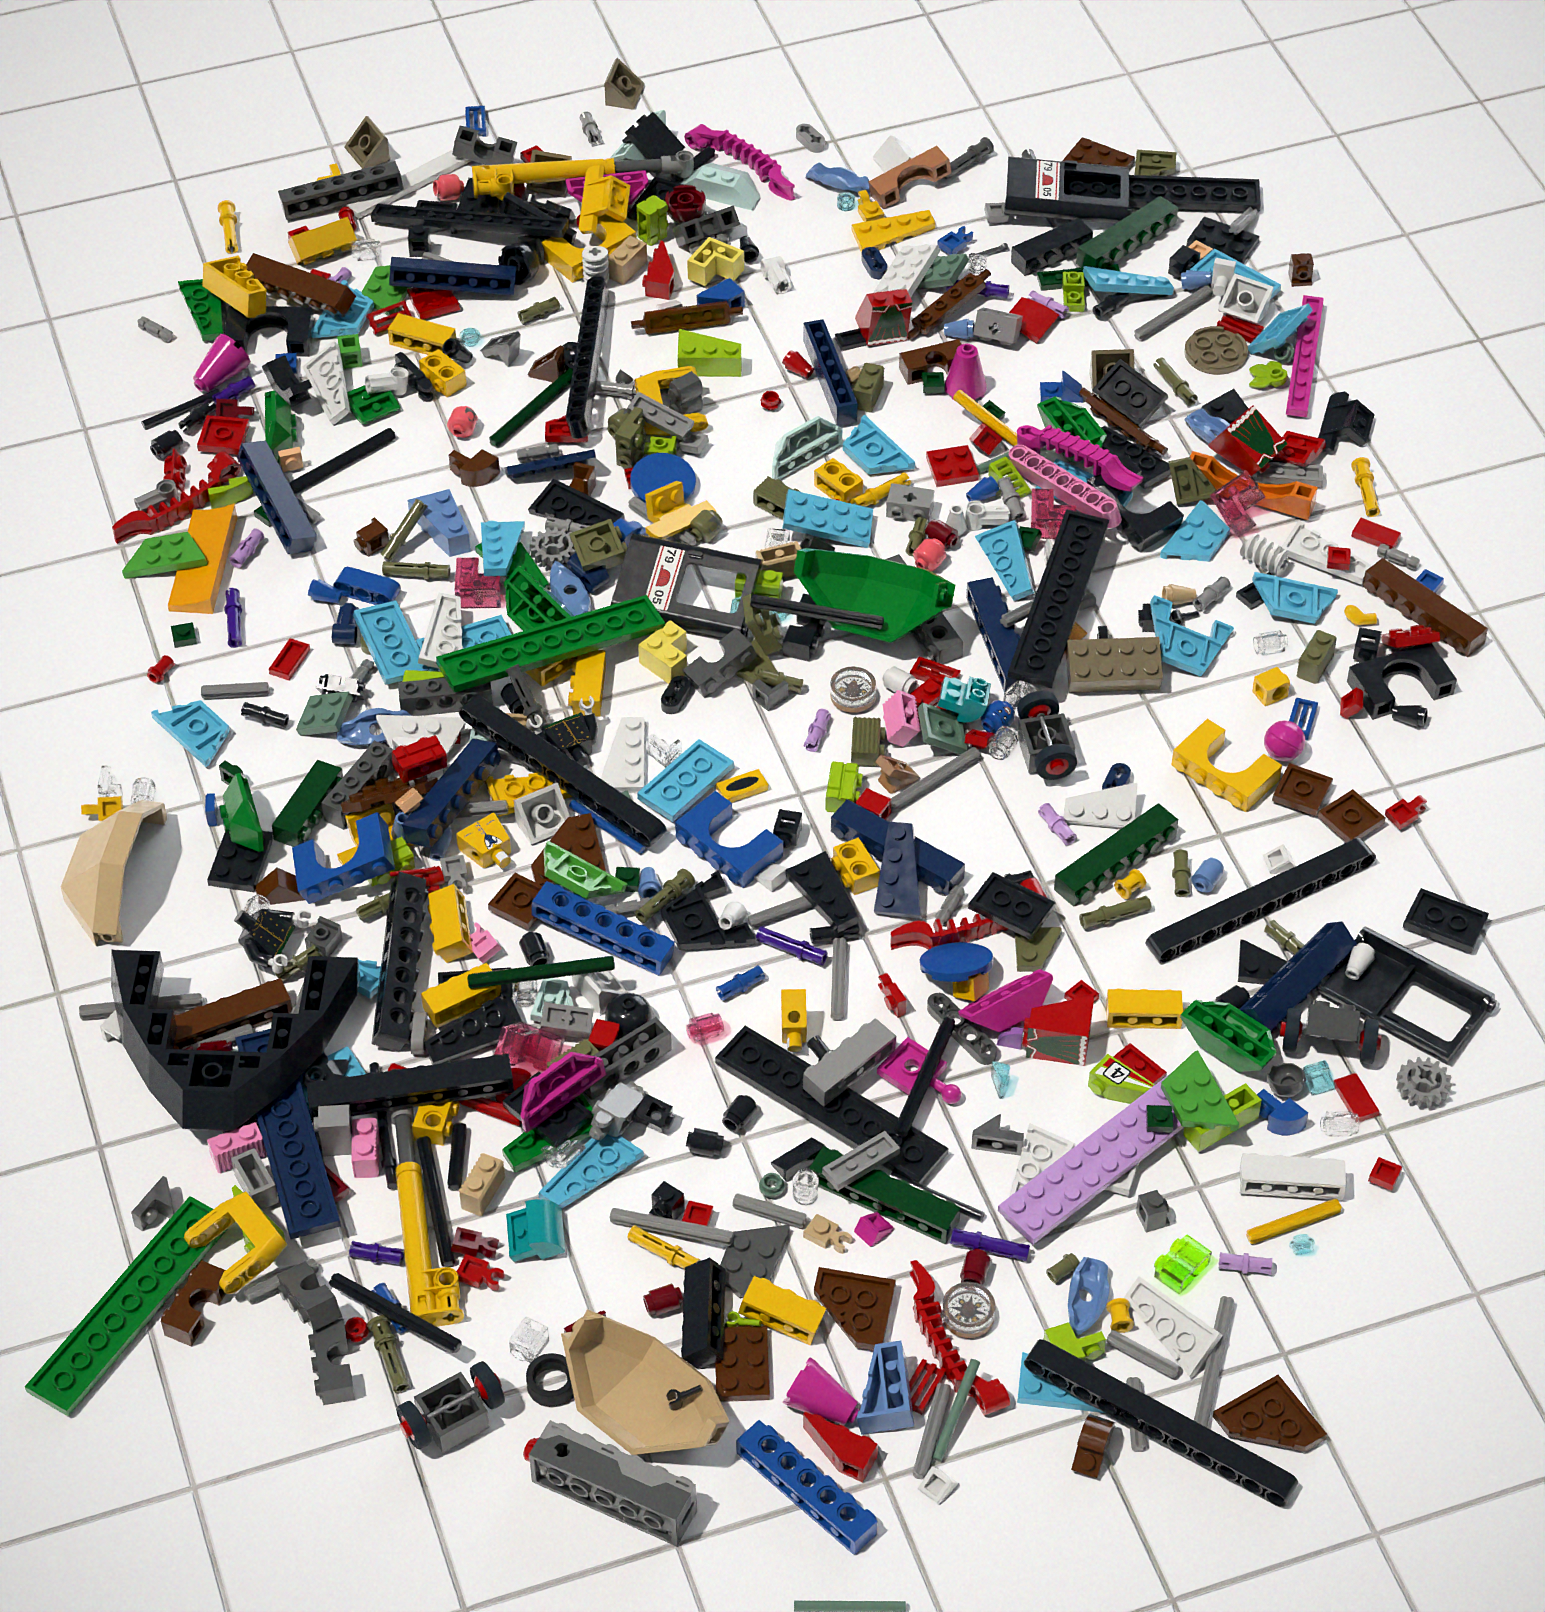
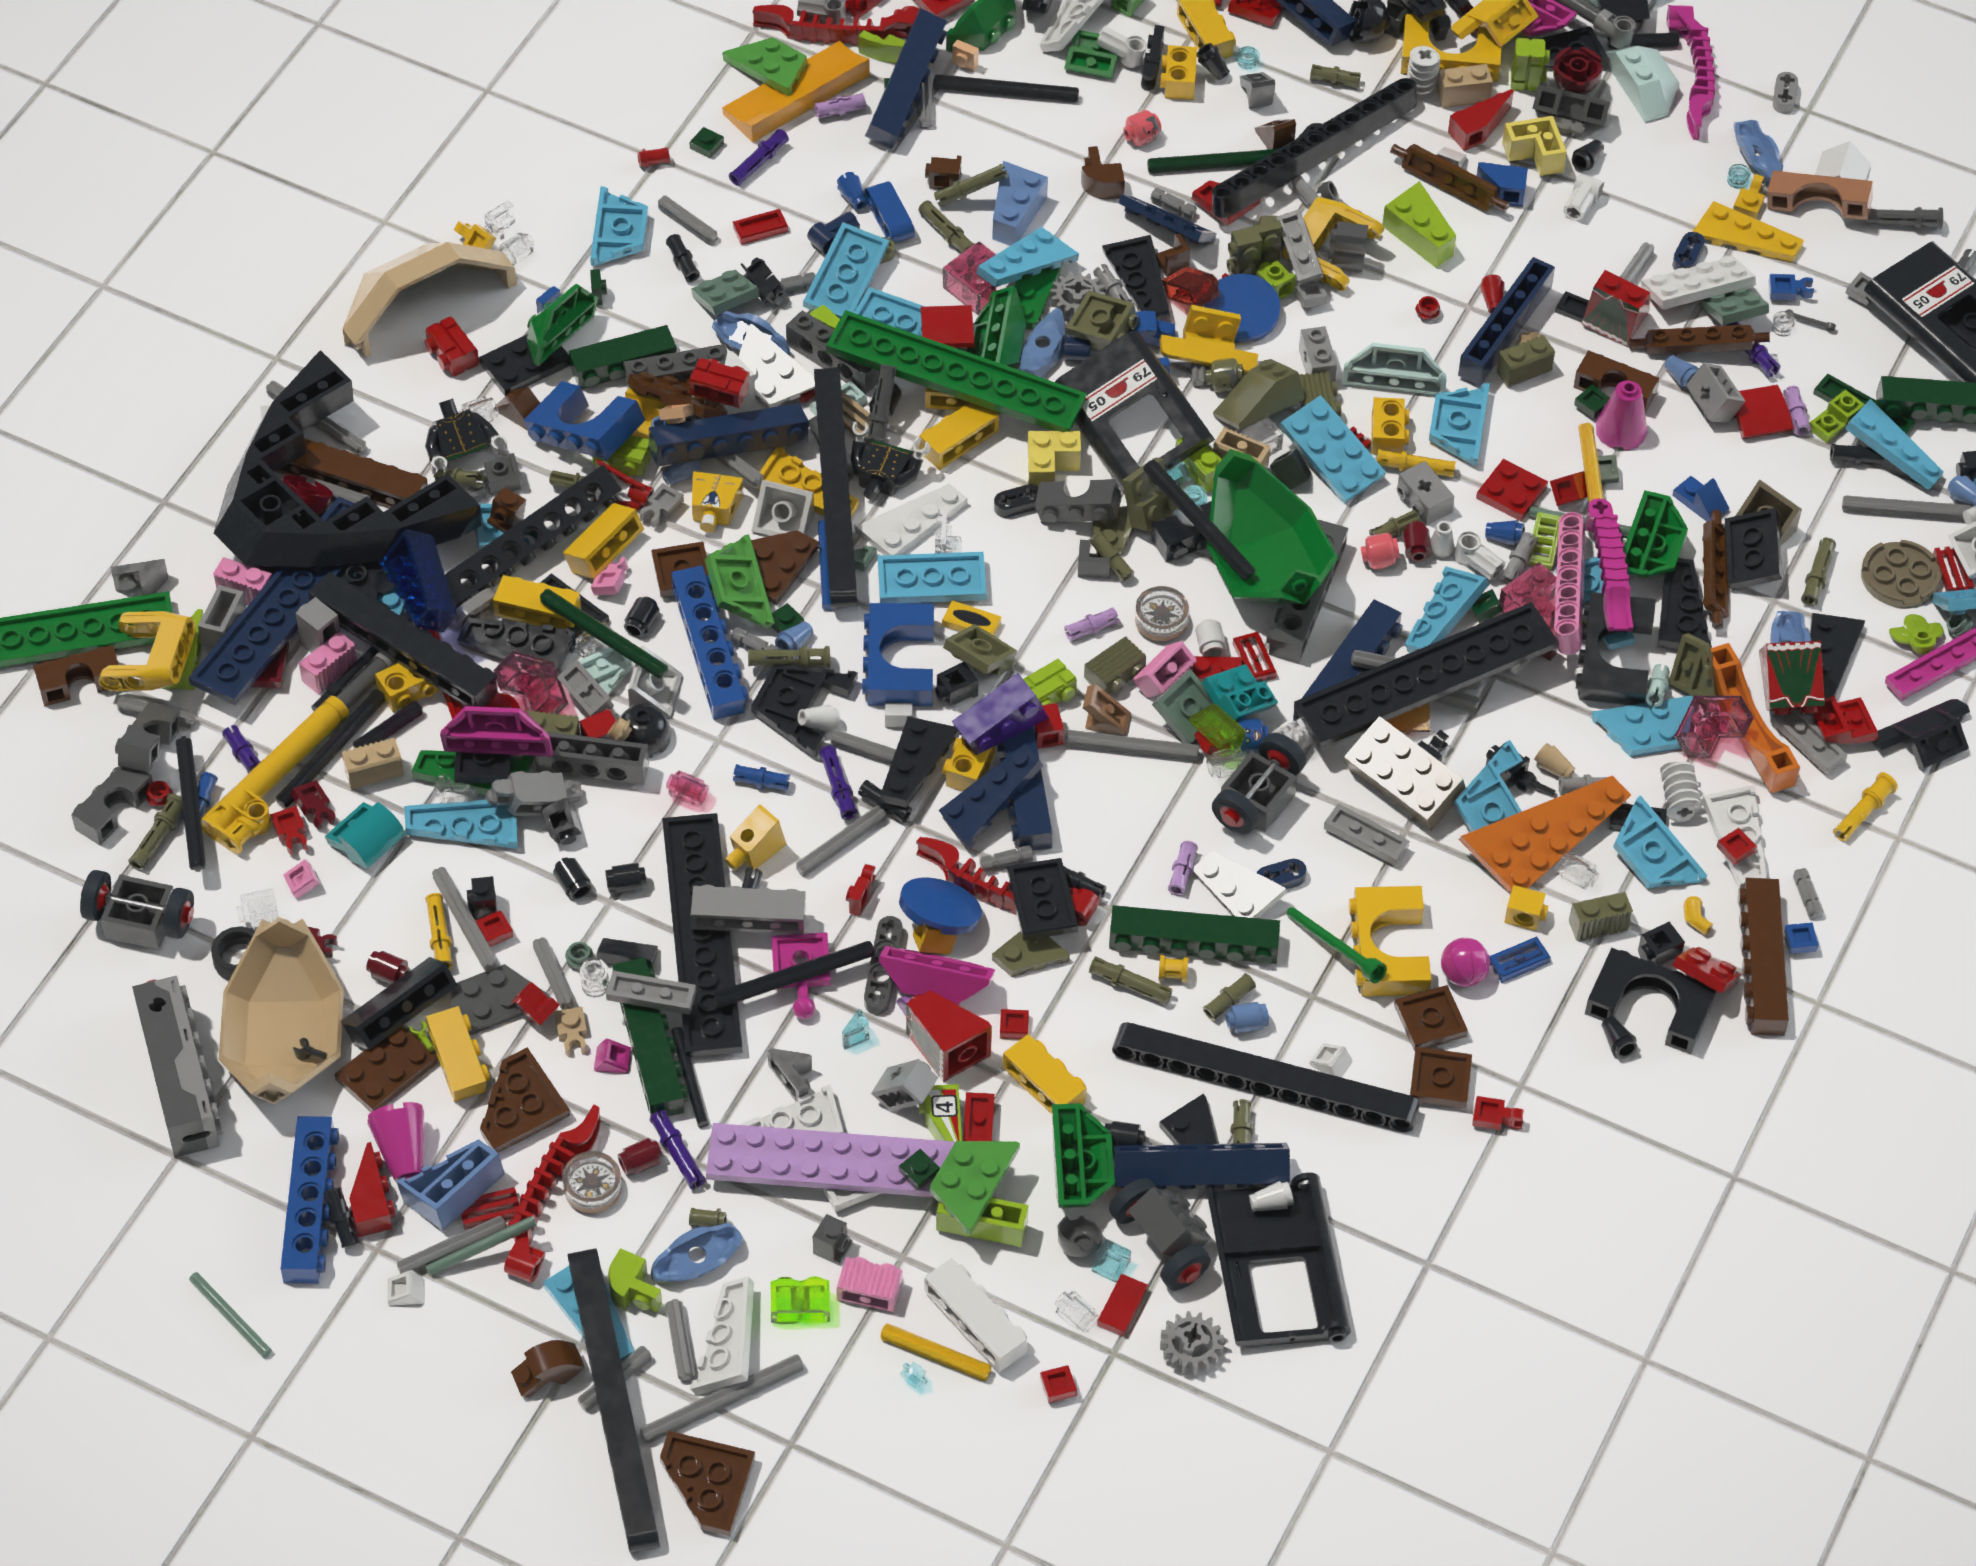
camera: 45 degrees right, 5 degrees up
(180, 887) = (451, 346): none -> red brick
(367, 951) = (506, 510): none -> reddish brown brick
(375, 1038) = (420, 580): none -> clear blue wedge
(443, 631) = (894, 295): white wing -> none
(502, 621) = (948, 325): none -> red slope
(528, 1297) = (301, 878): none -> bright pink tile
(622, 488) = (1191, 286): none -> clear red brick
(625, 1022) = (620, 729): none -> tan plate
(744, 472) = (1317, 351): none -> light grey brick
(746, 518) = (1261, 394): none -> olive slope
(779, 793) = (981, 650): none -> olive plate
(792, 1237) = (535, 1004): none -> red panel
(846, 1476) = (341, 1217): none -> black pin
(853, 817) = (1000, 715): none -> wedge
(854, 289) = (1638, 262): none -> light grey axle
(980, 723) = (1218, 727): none -> clear neon green slope
(1050, 246) = (1869, 357): black brick -> none
(1079, 1081) = (904, 1085): none -> light grey brick
(1120, 1315) = (699, 1294): yellow bush -> none
(1132, 718) = (1366, 834): none -> light grey plate
(1189, 512) = (1658, 685): none -> light aqua pin
(1208, 1215) = (869, 1283): none -> bright pink brick
(1228, 642) = (1534, 840): none -> orange wing
(1245, 1263) = (851, 1347): lavender pin -> none
(1246, 784) = (1372, 969): none -> green piece
(1283, 1118) = (1035, 1263): blue brick -> none
(1351, 703) = (1577, 983): red plate -> none
(1375, 533) = (1816, 856): red tile -> none
(1445, 920) = (1400, 1233): black plate -> none

